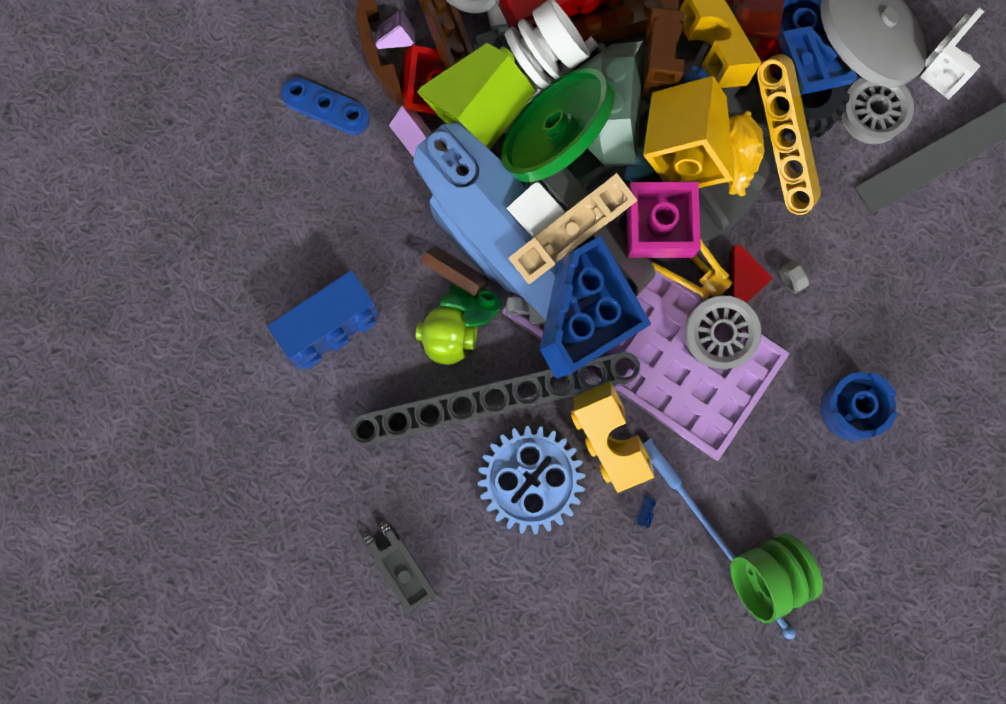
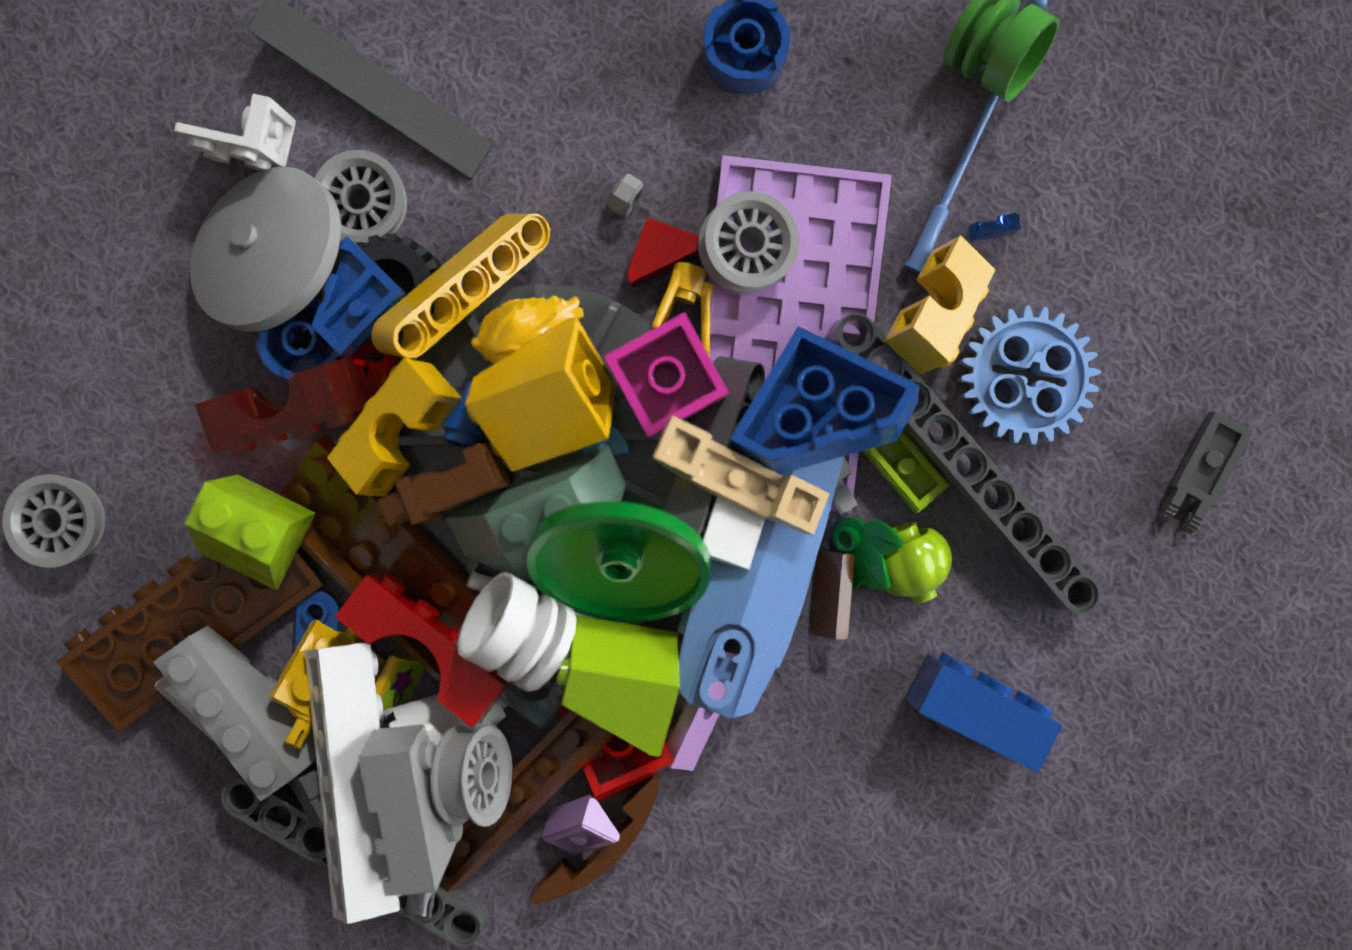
camera: 110 degrees left, 10 degrees up
(334, 115) = (704, 842): blue plate -> none
(512, 362) = (908, 472): none -> lime brick

